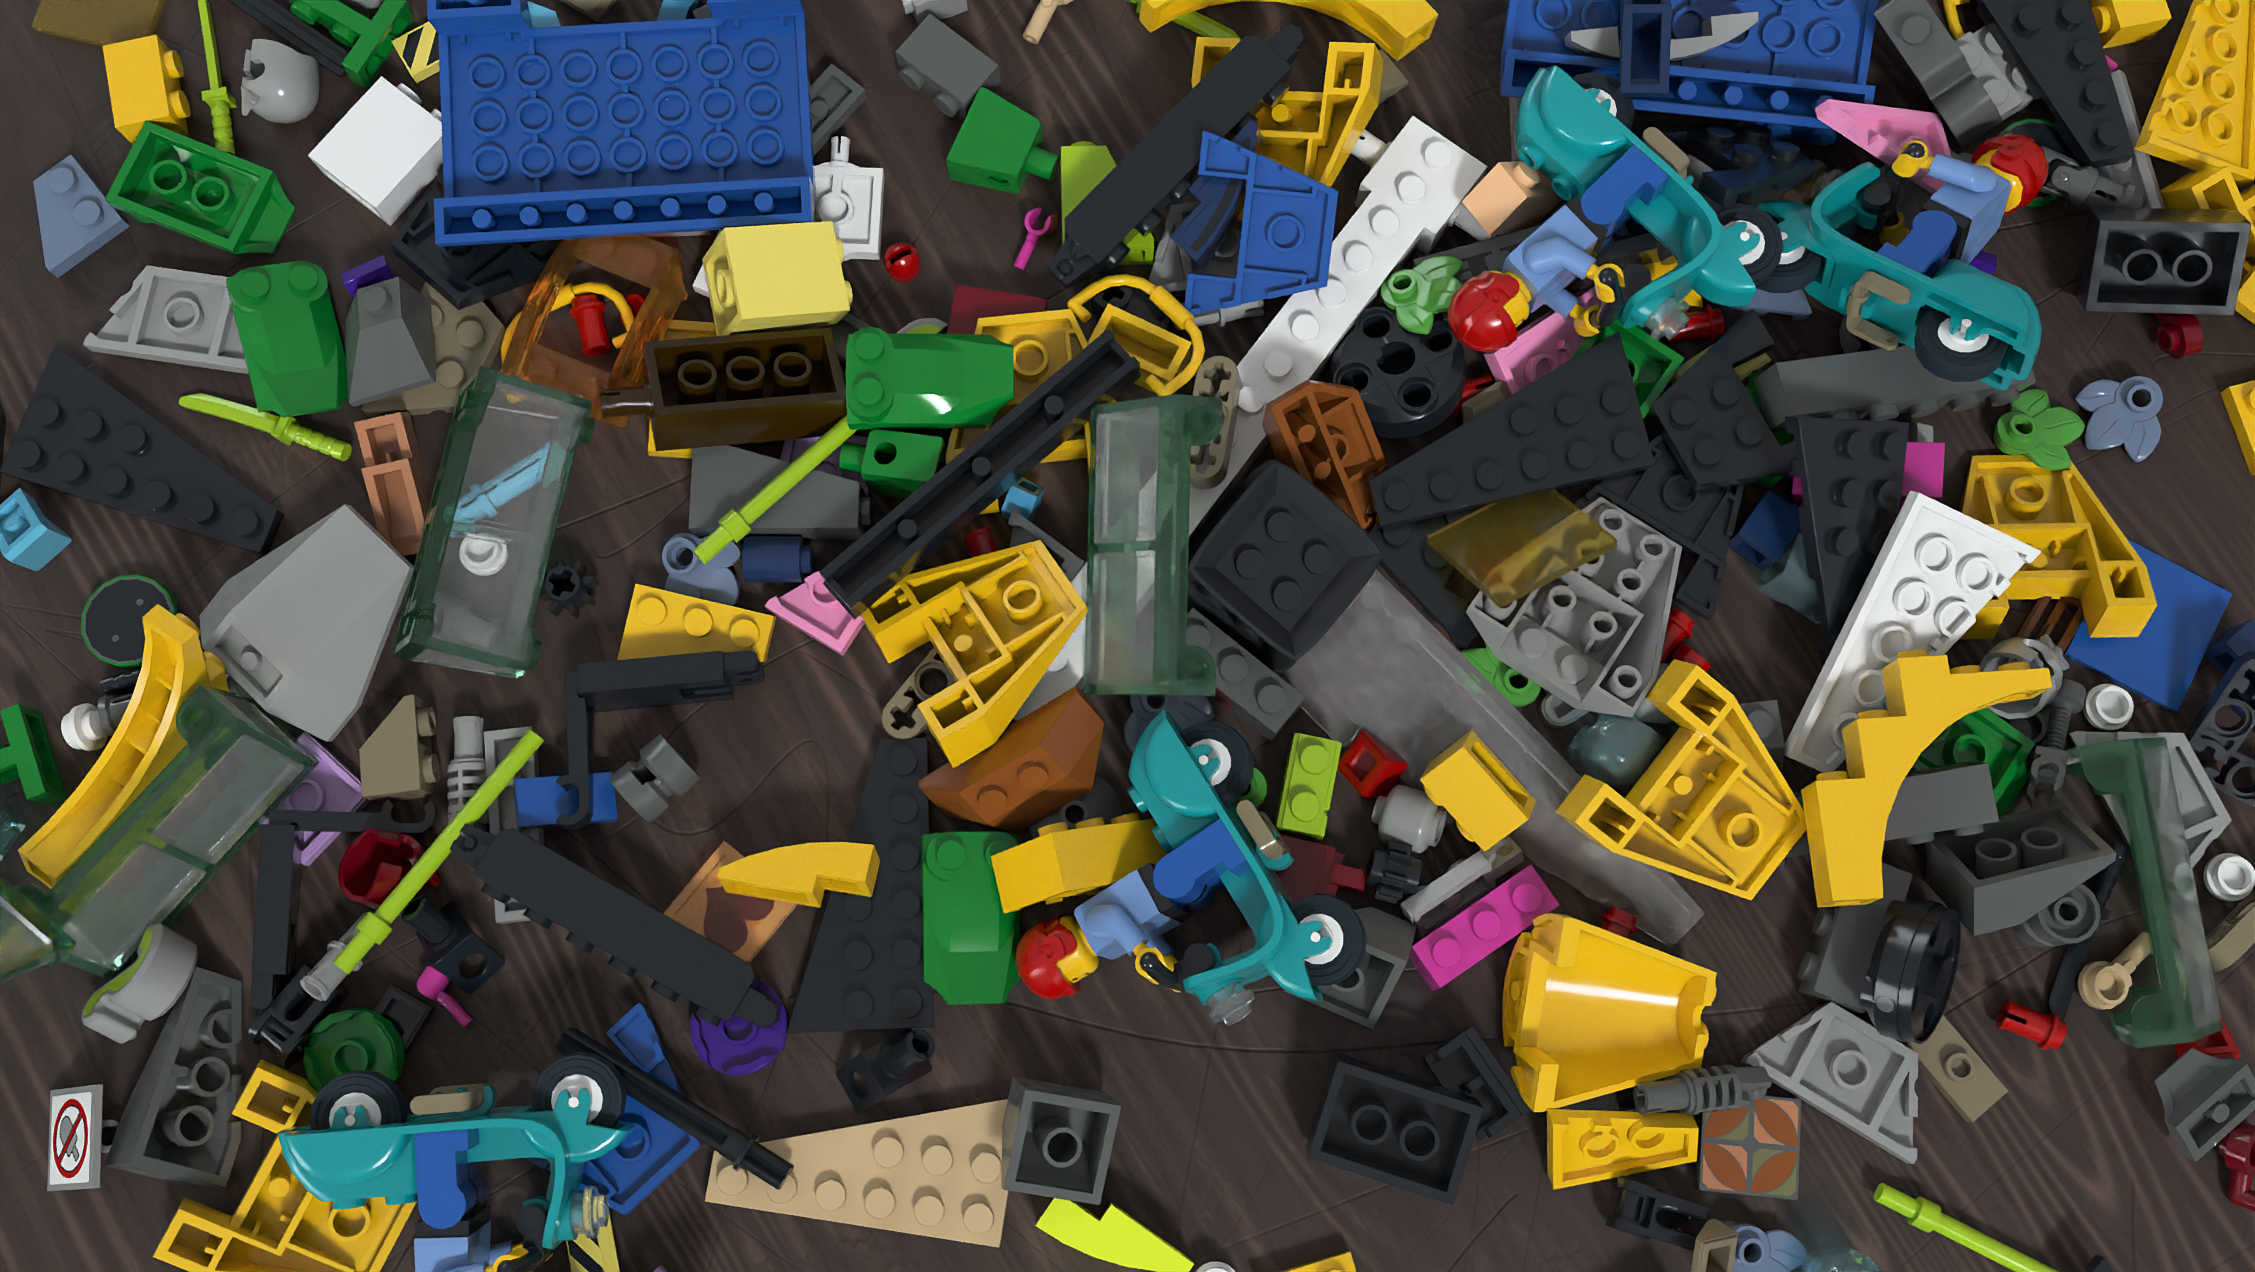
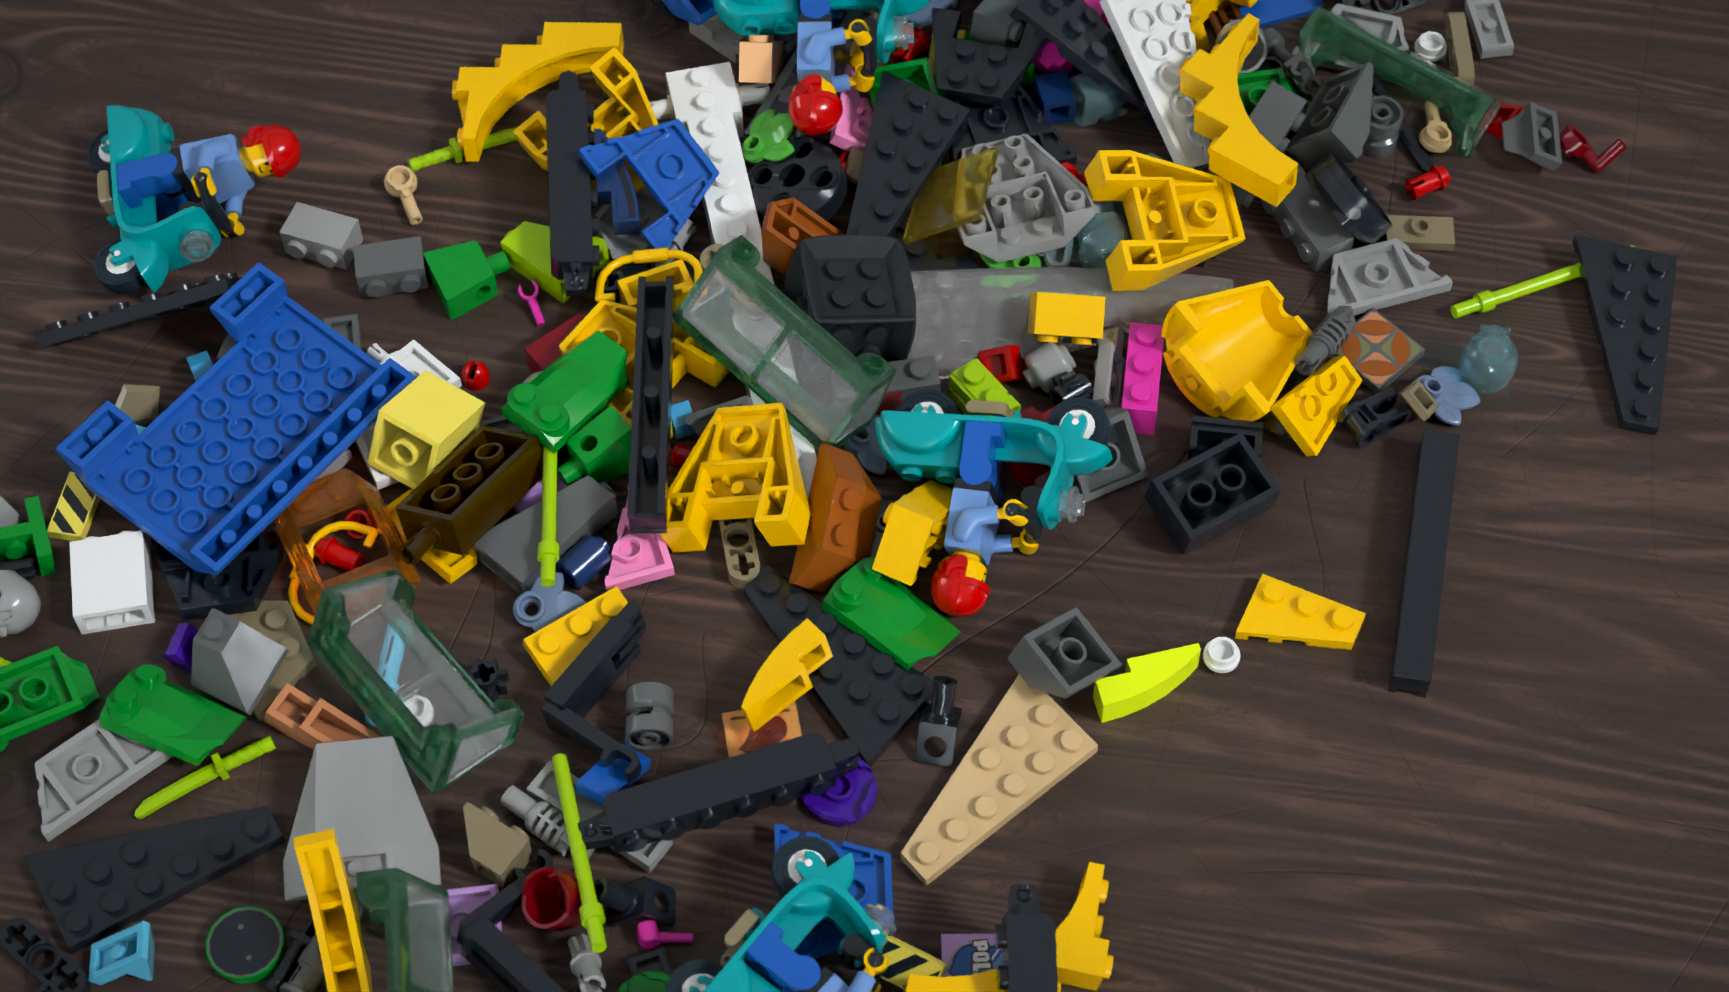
camera: 45 degrees left, 20 degrees down
(685, 1114) = (881, 837): black axle -> none
(2108, 707) = (1291, 28): white plate -> none

